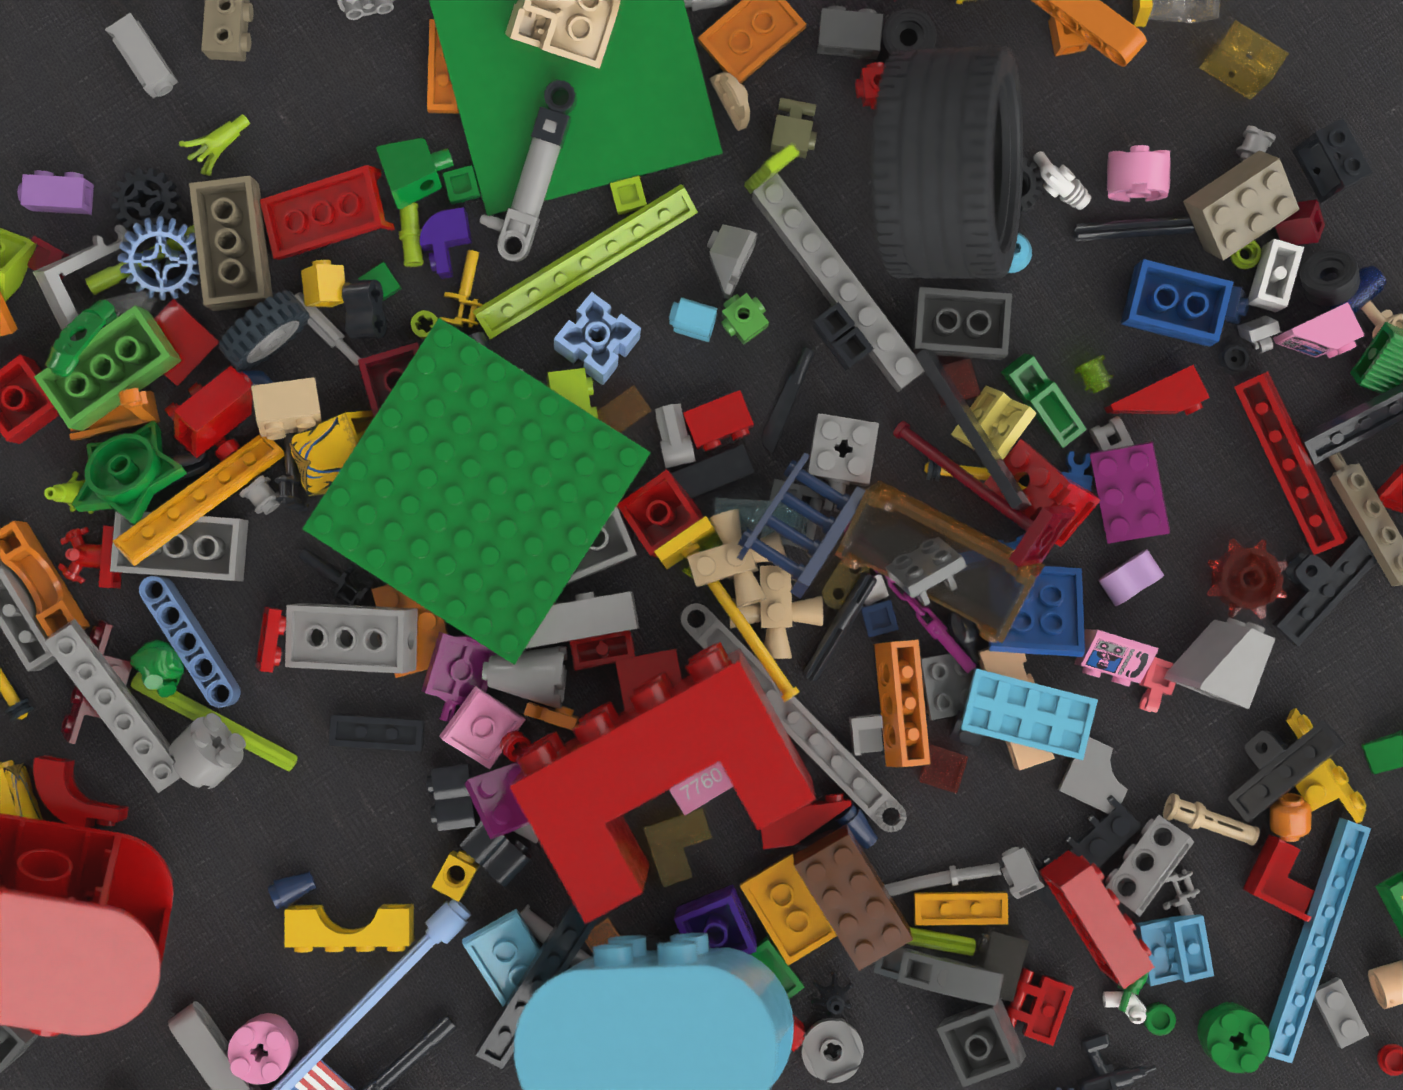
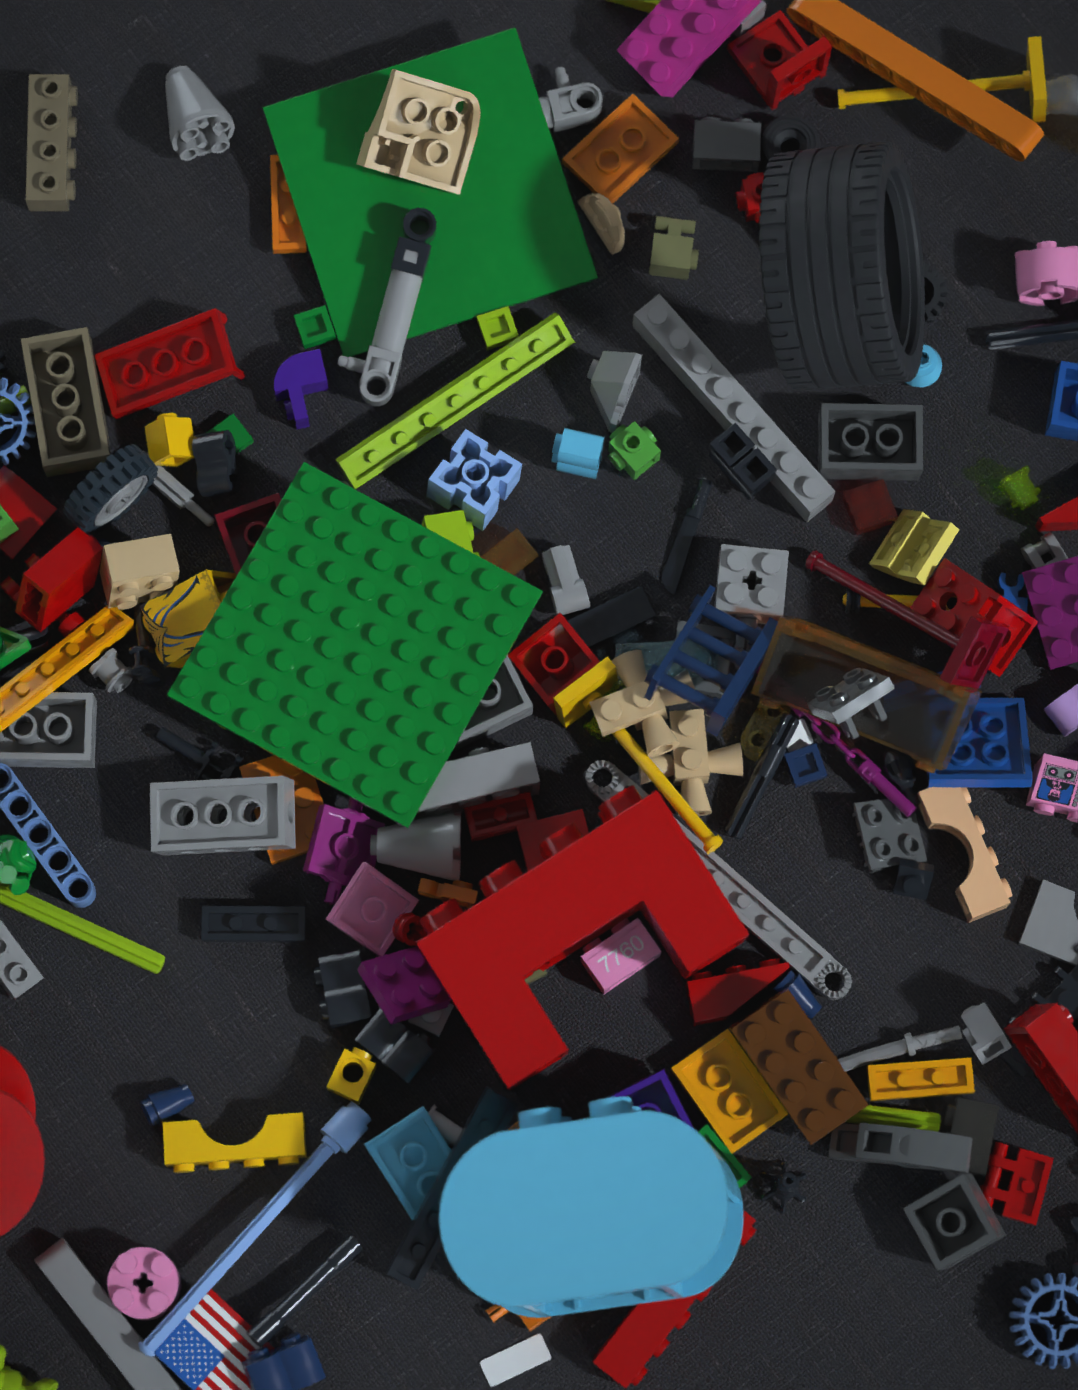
camera: 10 degrees left, 10 degrees down
(206, 752) = (68, 950): light grey brick -> none
(215, 142) = (42, 297): lime piece -> none
(268, 652) = (129, 831): red plate -> none
(410, 236) = (261, 383): lime pin -> none
(412, 169) = (260, 313): green torso -> none
(415, 322) = (286, 469): lime bush -> none
(465, 292) = (324, 438): yellow piece -> none
(668, 843) = (589, 1021): clear yellow plate -> none
(718, 420) = (613, 561): red brick -> none
(771, 167) = (653, 282): lime tile -> none
(824, 1066) = (794, 1228): light grey plate -> none
(866, 733) = (800, 892): light grey panel -> none
(902, 703) = (837, 854): orange brick -> none
(944, 769) = (888, 925): clear red piece -> none
(973, 430) = (891, 549): black tile -> none
(1028, 714) = (977, 853): medium azure plate -> none
(1044, 398) = (975, 523): green slope -> none
(1062, 182) = (966, 287): white piece -> none
(1065, 40) = (959, 140): orange panel -> none

